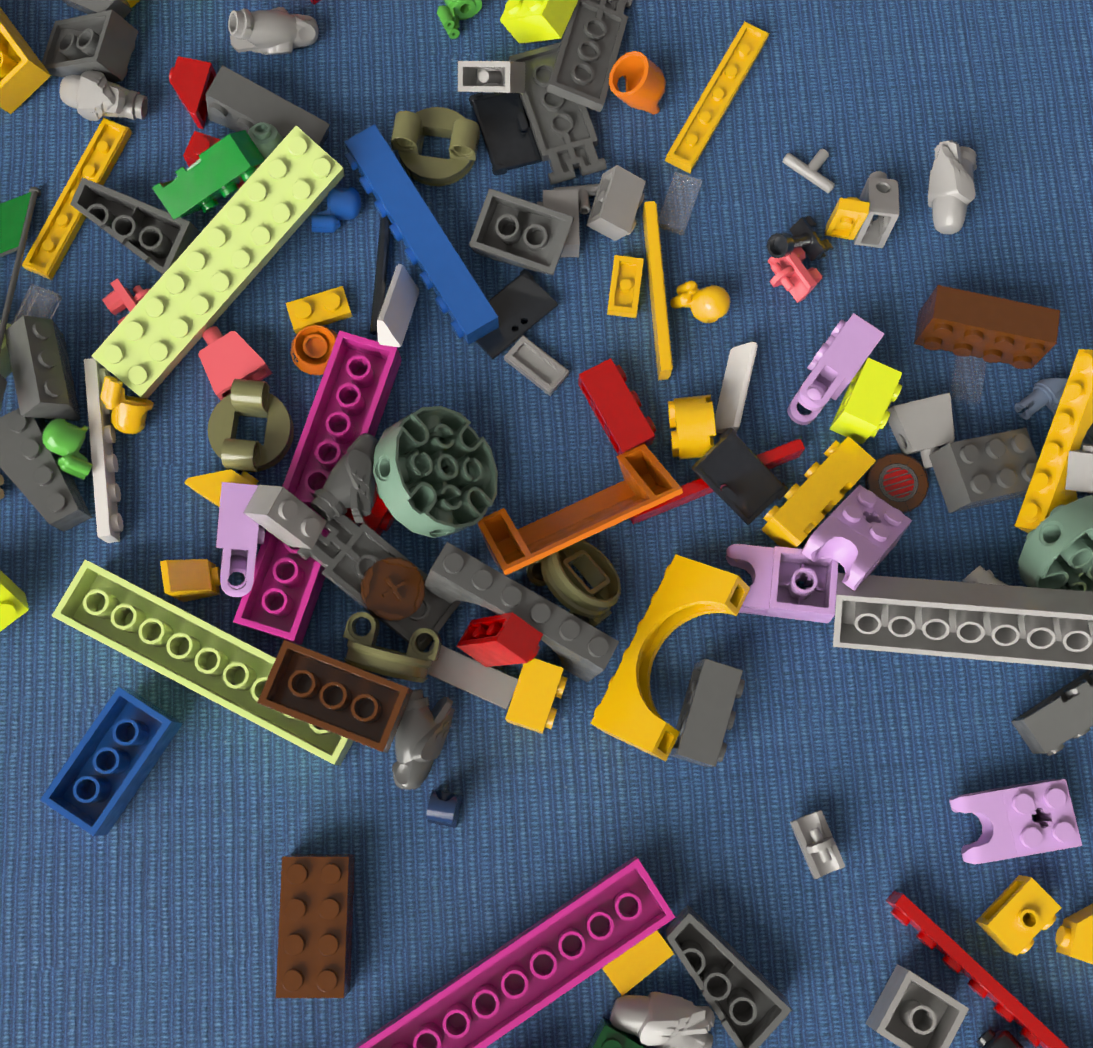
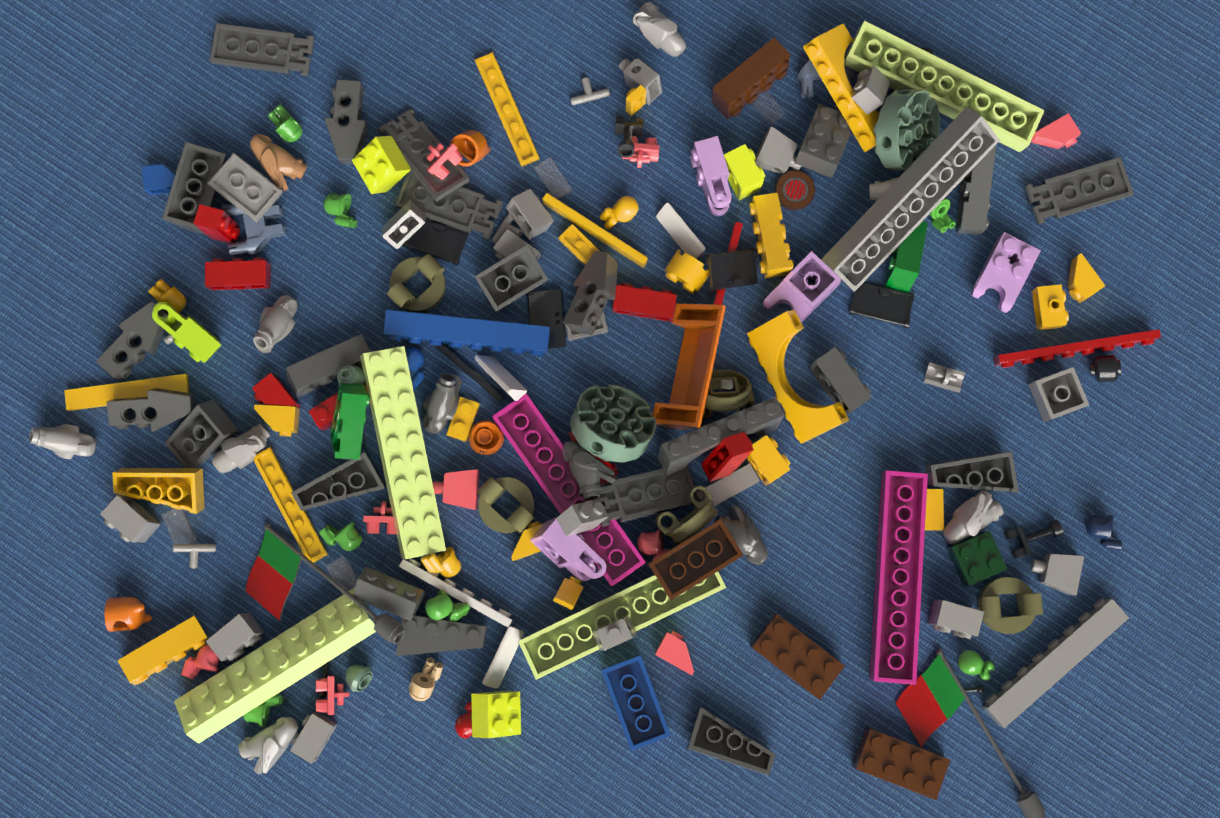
camera: 50 degrees left, 5 degrees up
(60, 560) = (503, 657): none -> white slope
(80, 281) = (347, 537): none -> bright green piece
(137, 921) = (721, 741): none -> dark grey wedge
(168, 114) = (280, 418): none -> yellow slope
(169, 666) = (614, 633): none -> light grey torso
(212, 765) = (675, 652): none -> coral slope
(319, 268) = (441, 403): none -> dark grey animal
(327, 633) = (651, 543): none -> coral piece
(392, 589) = (656, 491): reddish brown tile -> none
(444, 808) = (787, 549): dark blue leg -> none
(586, 336) = (595, 287): none -> dark grey brick
(609, 56) = (449, 153): none -> coral hips
(843, 698) = (881, 306): none -> black door
(858, 535) = (810, 234): lavender brick -> none
(926, 682) = (906, 260): none -> green wedge
(1017, 678) = (941, 220): none -> bright green piece

